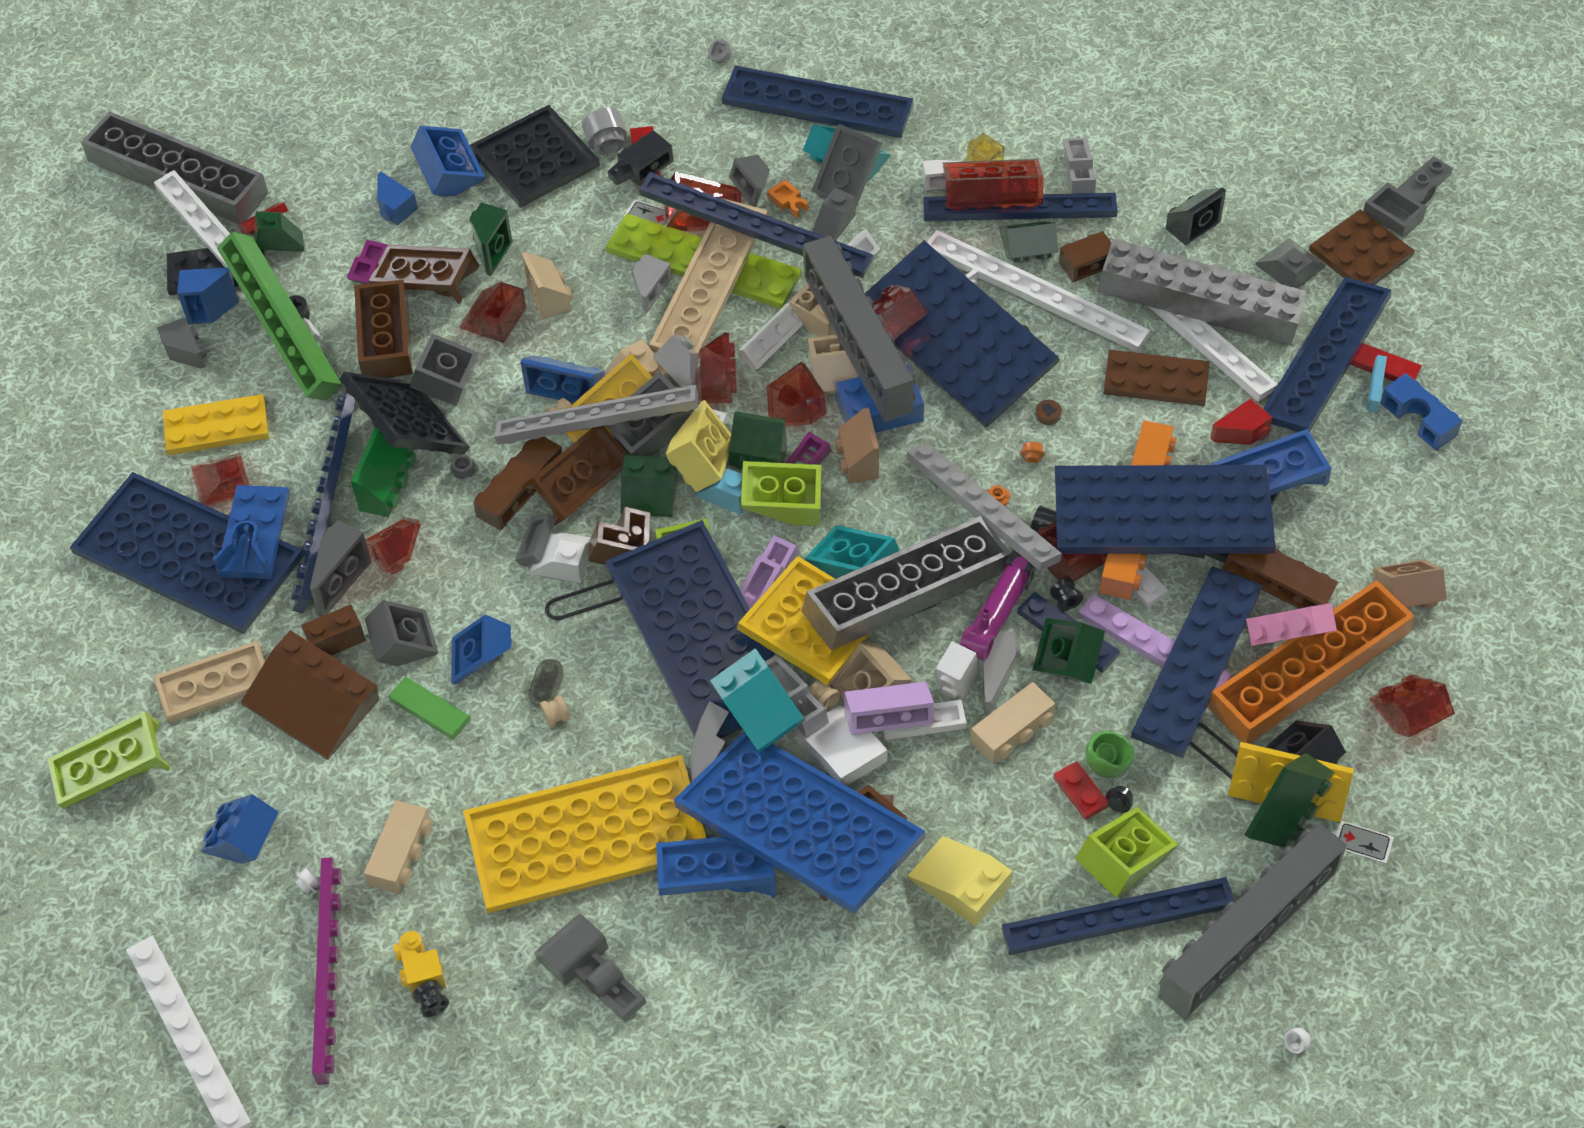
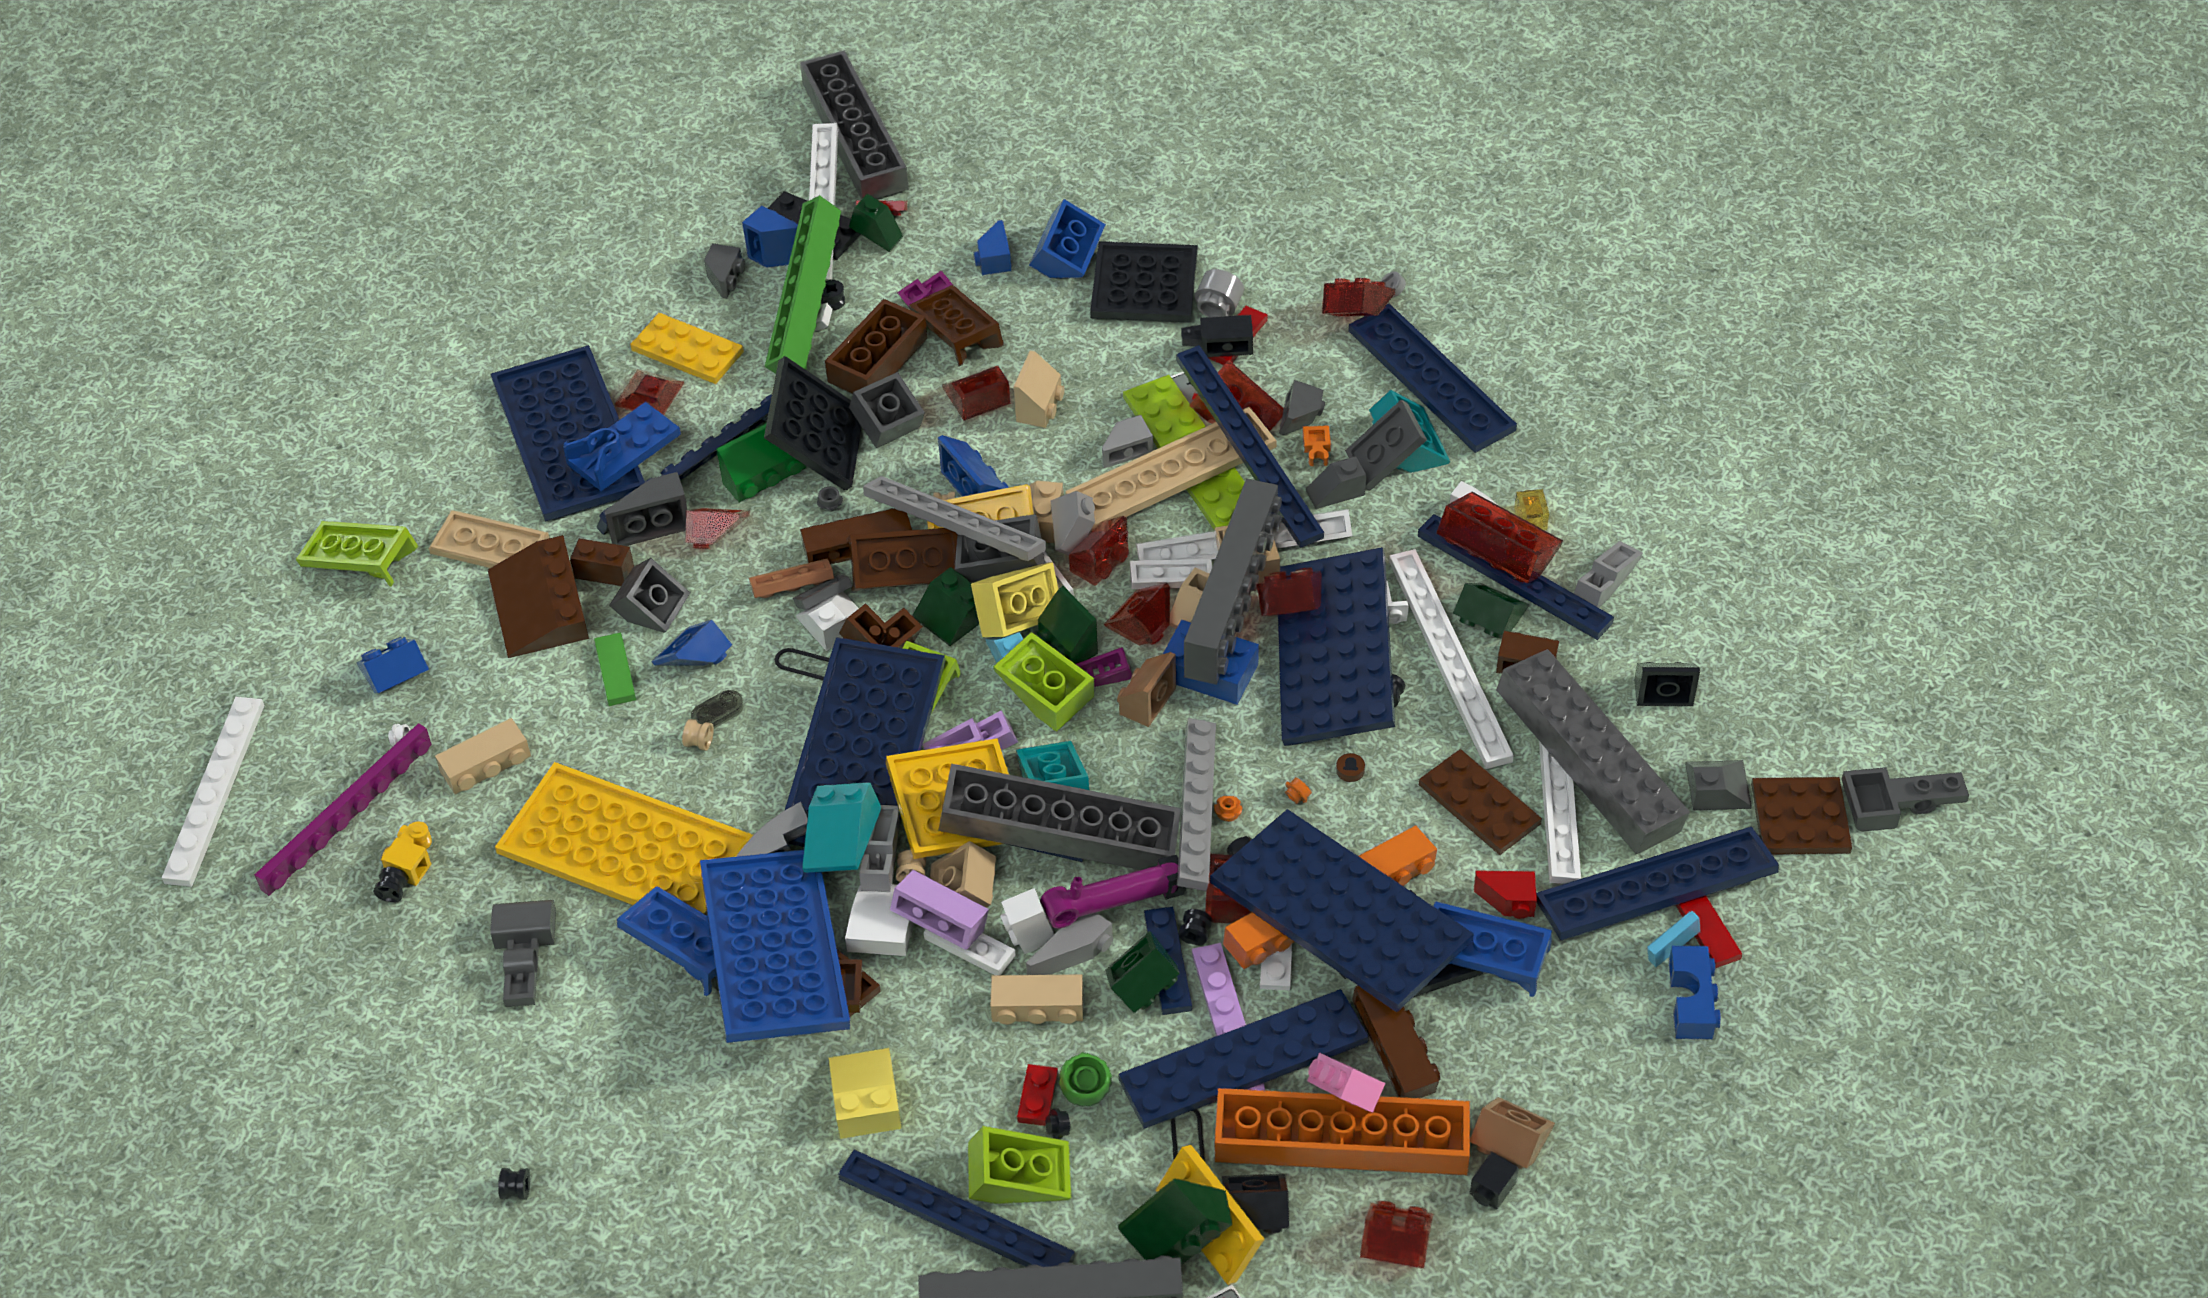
camera: 40 degrees right, 5 degrees down
(491, 235) = (1031, 325): dark green slope -> none
(499, 545) = (791, 578): none -> nougat plate
(713, 75) = (1355, 298): none -> clear red slope
(781, 358) = (1174, 572): none -> white plate
(1433, 624) = (1493, 1181): none -> black brick

